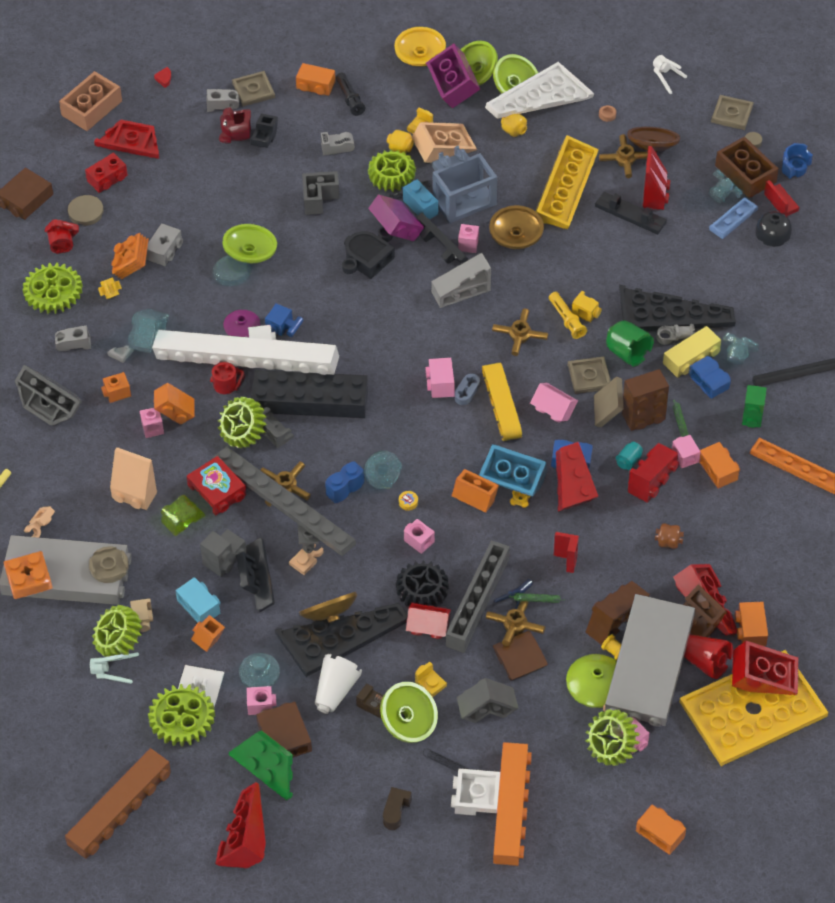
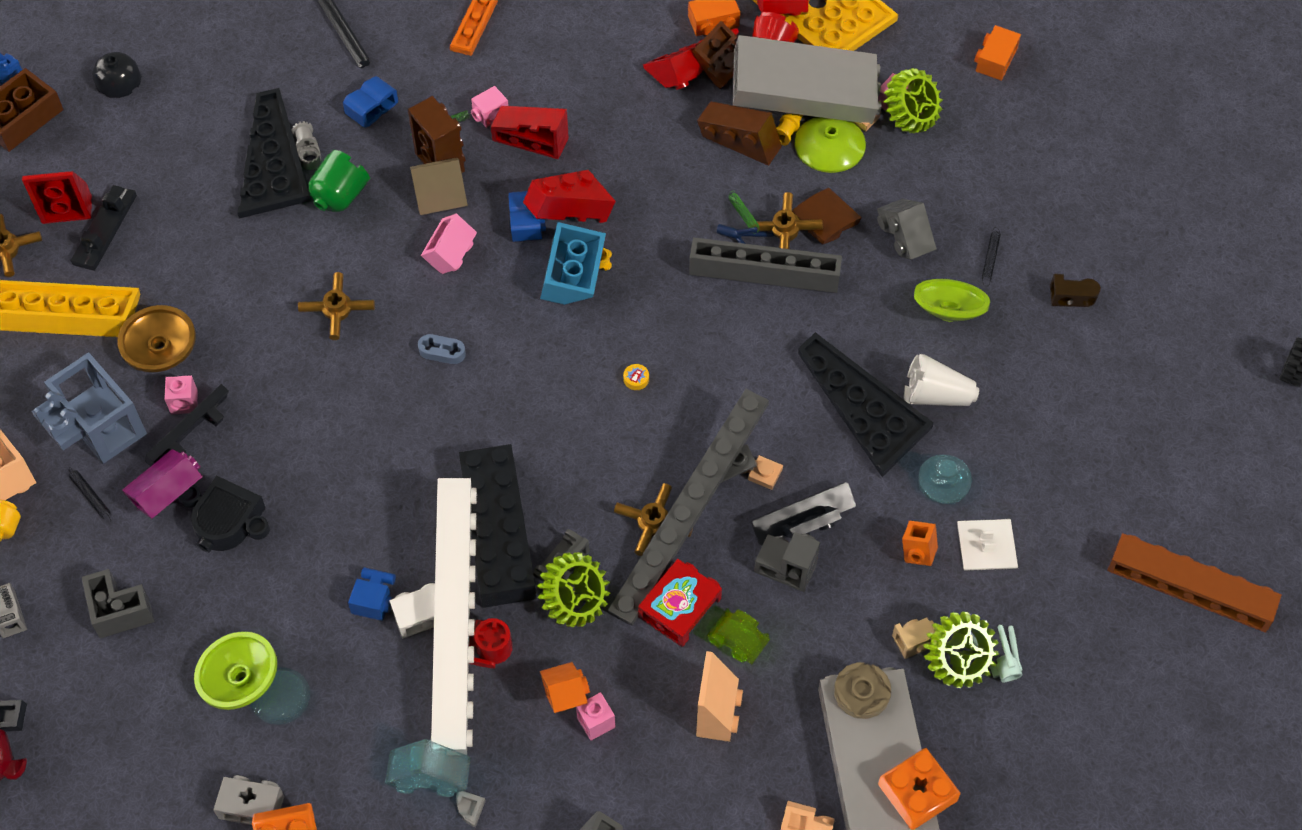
camera: 105 degrees left, 5 degrees up
(116, 387) = (542, 787): orange brick -> none
(181, 715) = (1067, 546): lime gear -> none
(197, 600) = (874, 570): medium azure brick -> none
(238, 328) = (383, 665): magenta dish -> none
(247, 836) = (1174, 433): red wedge -> none
(255, 694) = (987, 472): bright pink brick -> none
(267, 762) = (1074, 430): green wing -> none
(286, 728) = (1022, 426): reddish brown brick -> none
(330, 609) = (837, 409): pearl gold dish -> none
(344, 482) = (630, 446): blue brick -> none
(369, 700) = (945, 341): dark brown leg -> none
(382, 469) = (602, 410): clear light blue plate -> none
(391, 174) = (55, 535): lime gear -> none
(418, 576) = (747, 330): black gear -> none
(420, 199) = (116, 468): dark azure brick -> none
(421, 542) = (692, 340): bright pink brick -> none
(428, 620) = (815, 307): brick -> none
(429, 679) = (891, 297): yellow bracket -> none
(441, 378) = (435, 375): bright pink brick -> none
(463, 282) = (264, 383): light grey wedge -> none
(475, 490) = (610, 299): orange brick -> none
(475, 791) = (1024, 218): white plate -> none
(502, 401) = (455, 303): yellow beam -> none
(510, 804) = (1022, 185): orange brick -> none
(567, 547) = (677, 182): red panel -> none
(570, 320) = (305, 255): yellow pin -> none
(585, 307) = (281, 243): yellow brick -> none
(588, 374) = (388, 224): dark tan tile -> none
(629, 455) = (510, 159): teal brick -> none
(669, 536) = (618, 102): dark orange piece -> none
(691, 350) = (335, 123): light yellow brick -> none
(719, 465) = (503, 72): orange brick -> none
(723, 188) = (55, 128): clear light blue plate -> none
(733, 218) = (99, 120): medium blue tile -> none
(739, 348) = (322, 76): clear light blue plate -> none
(754, 406) = (415, 45): green brick -> none
(780, 198) = (67, 74): red panel -> none

